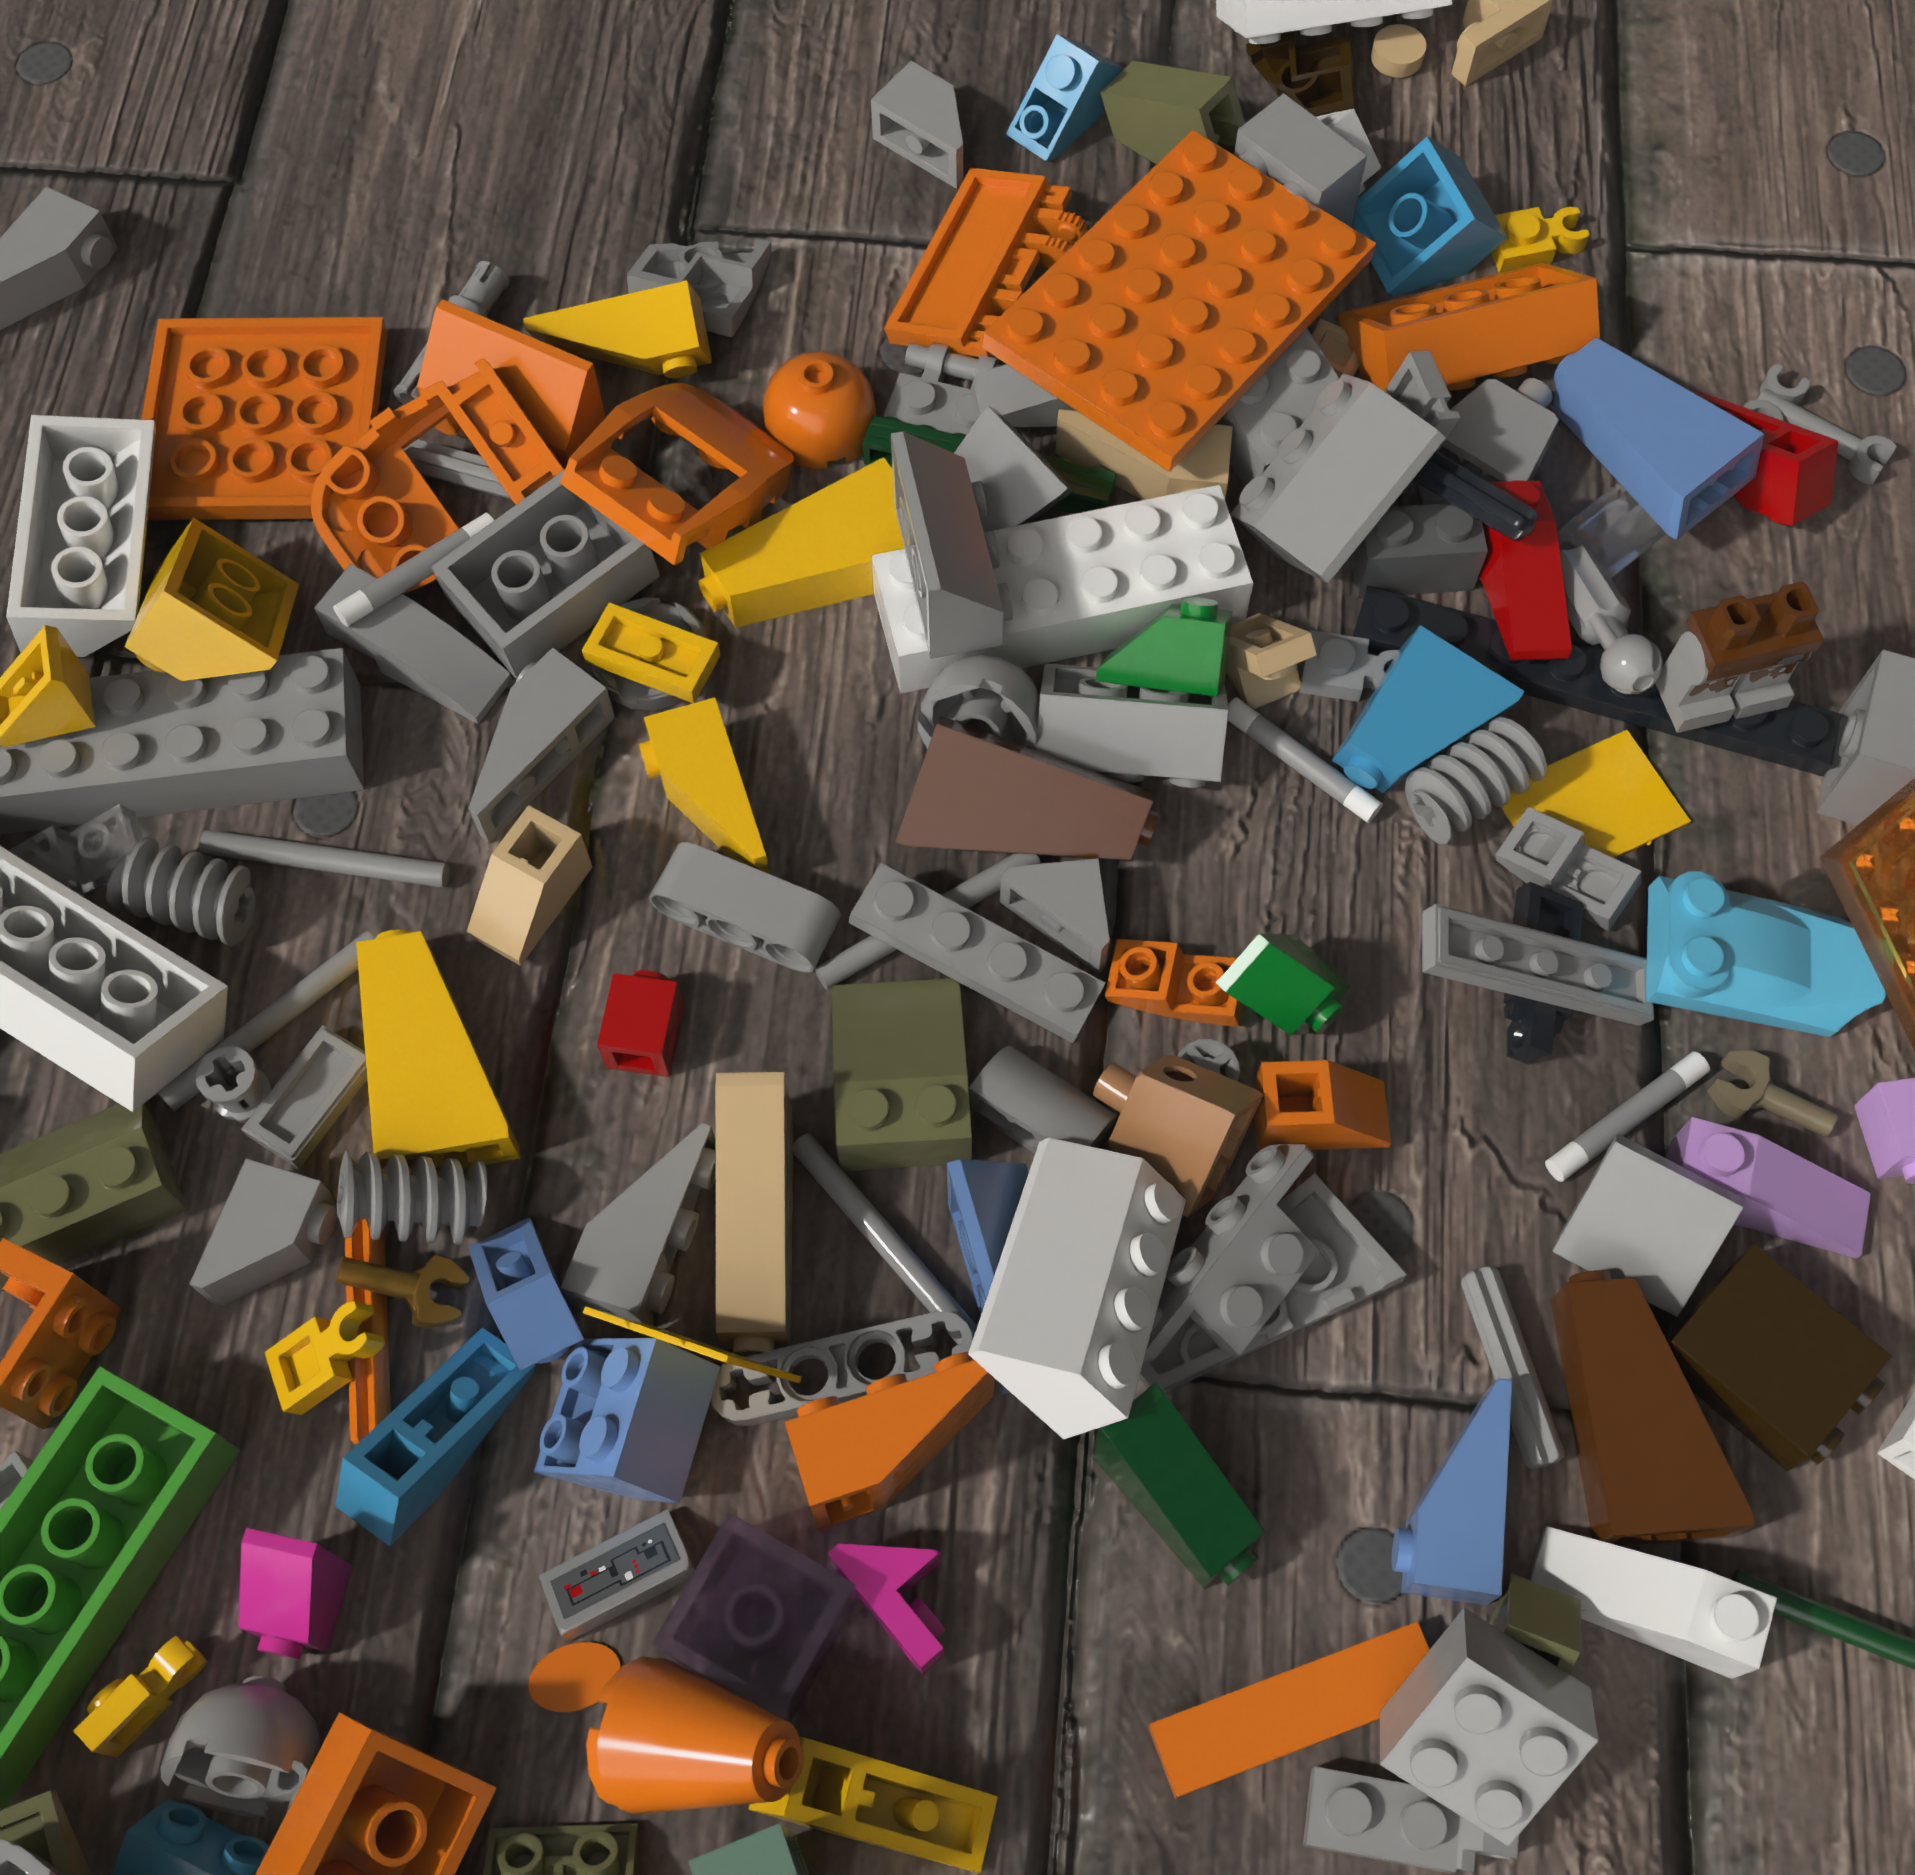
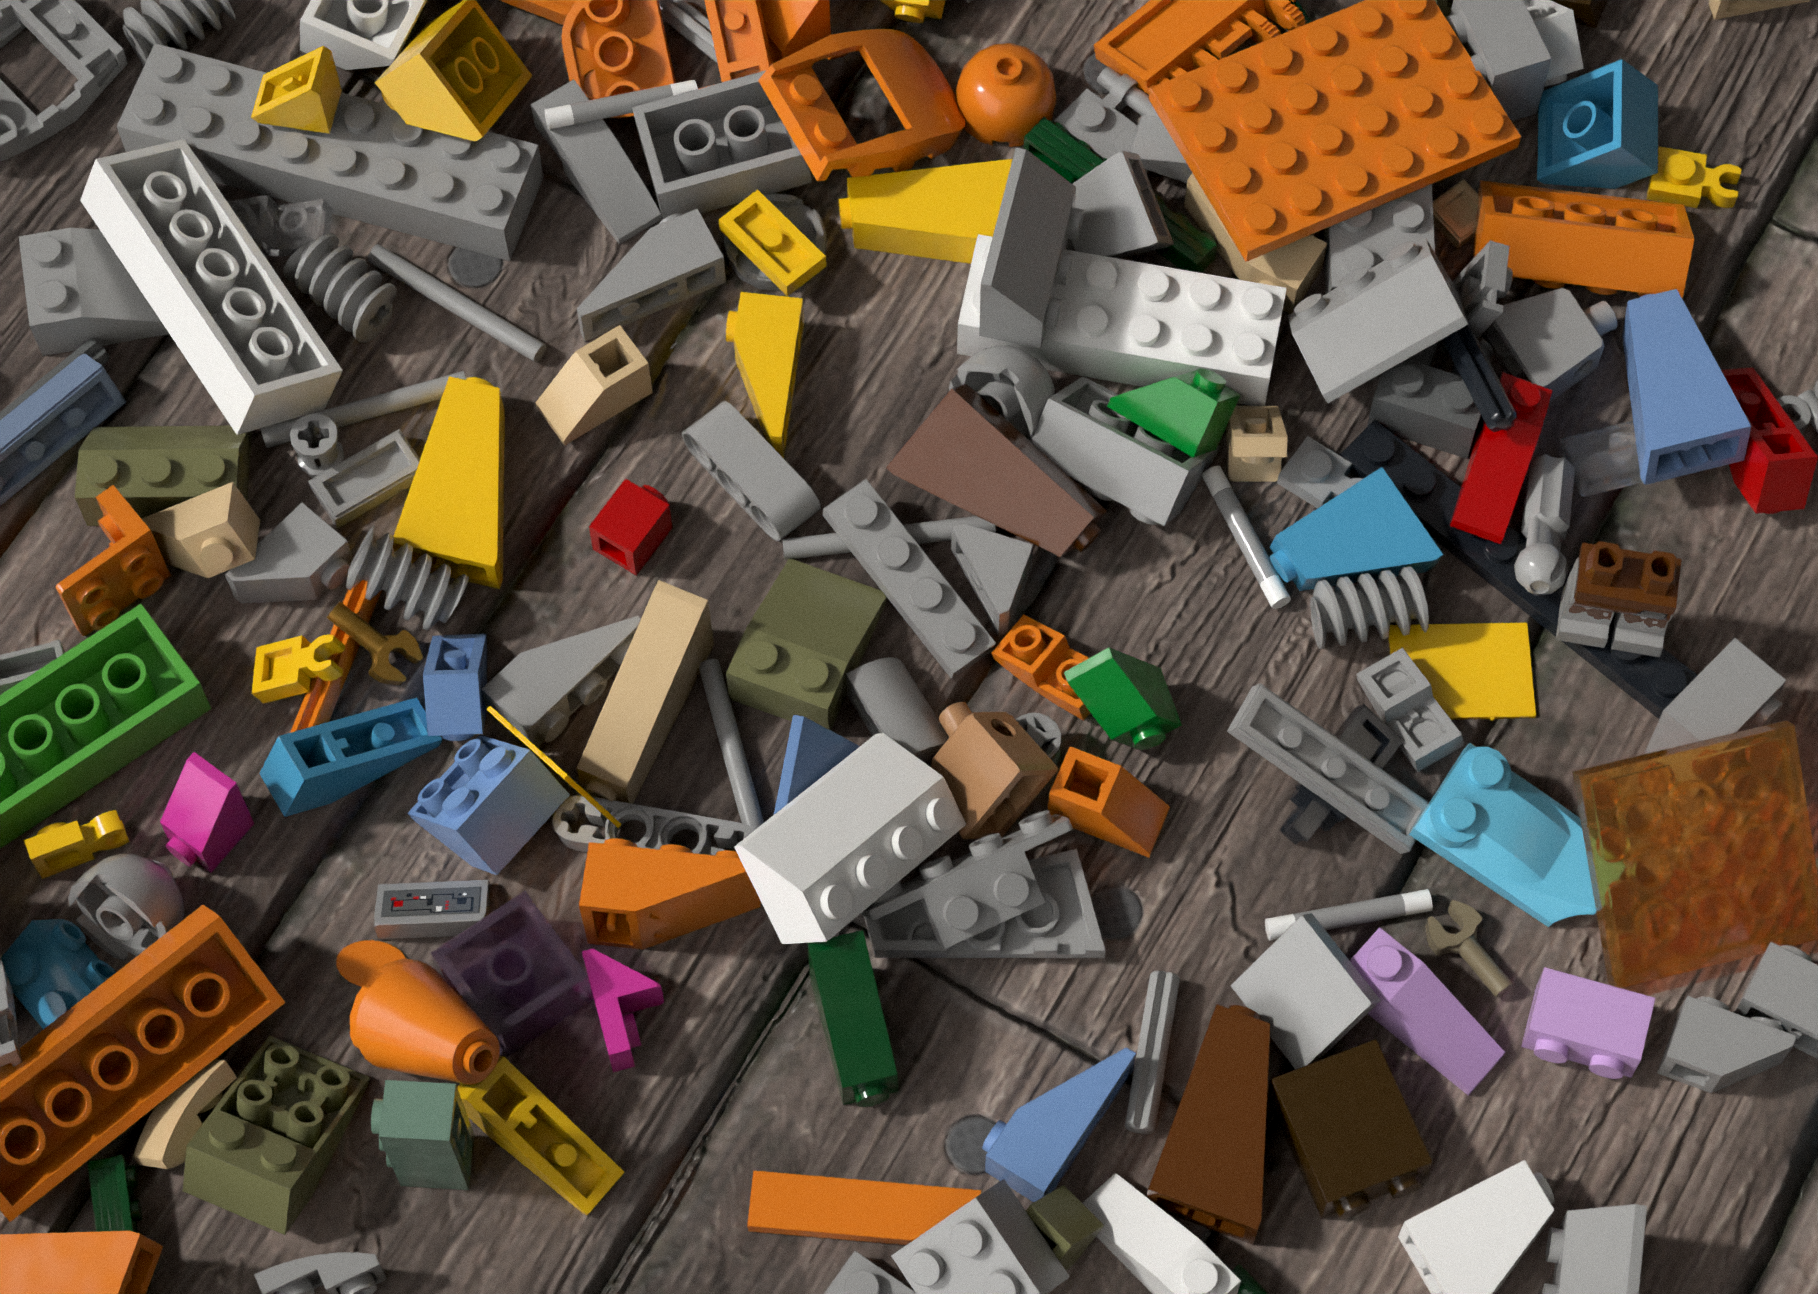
camera: 25 degrees right, 0 degrees up
(145, 1242) = (207, 532): none -> tan slope

